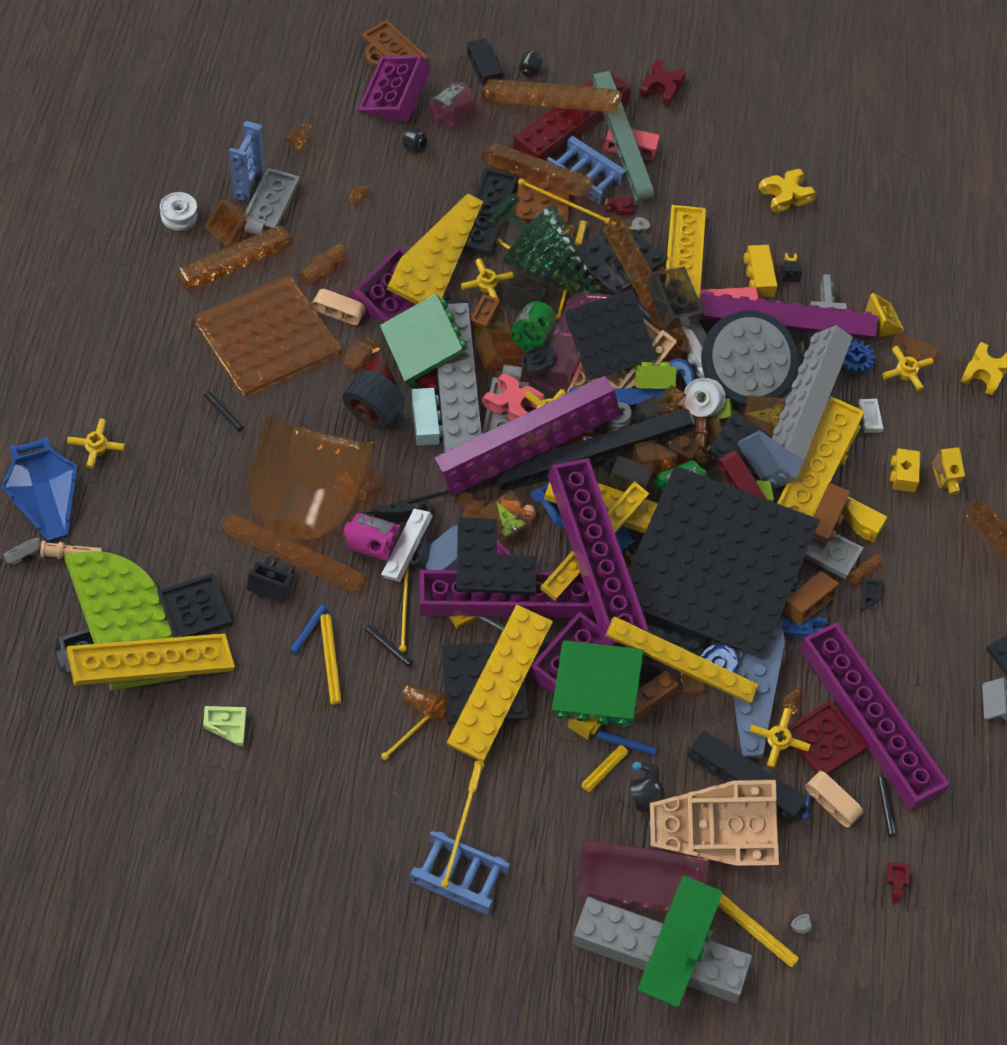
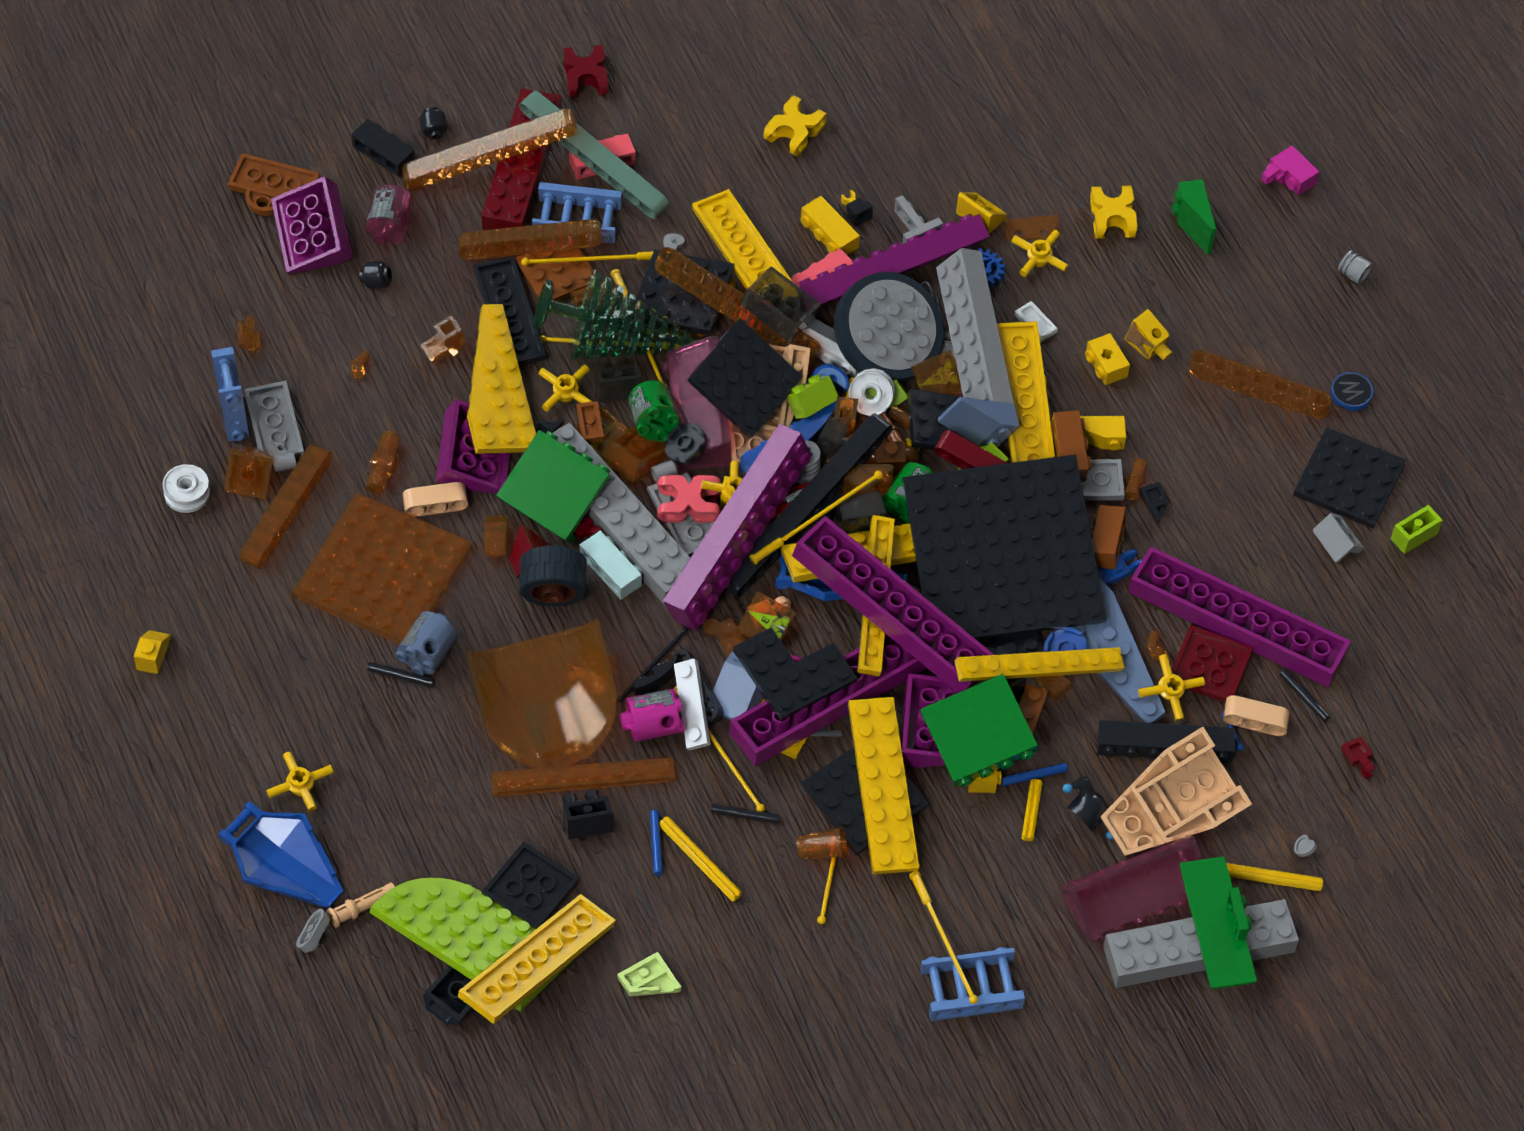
camera: 30 degrees left, 0 degrees up
(70, 302) = (151, 651): none -> yellow slope
(260, 397) = (427, 643): none -> sand blue cylinder
(428, 206) = (448, 340): none -> clear orange brick
(548, 464) = (755, 558): none -> yellow piece
(622, 206) = (640, 231): dark red plate -> none

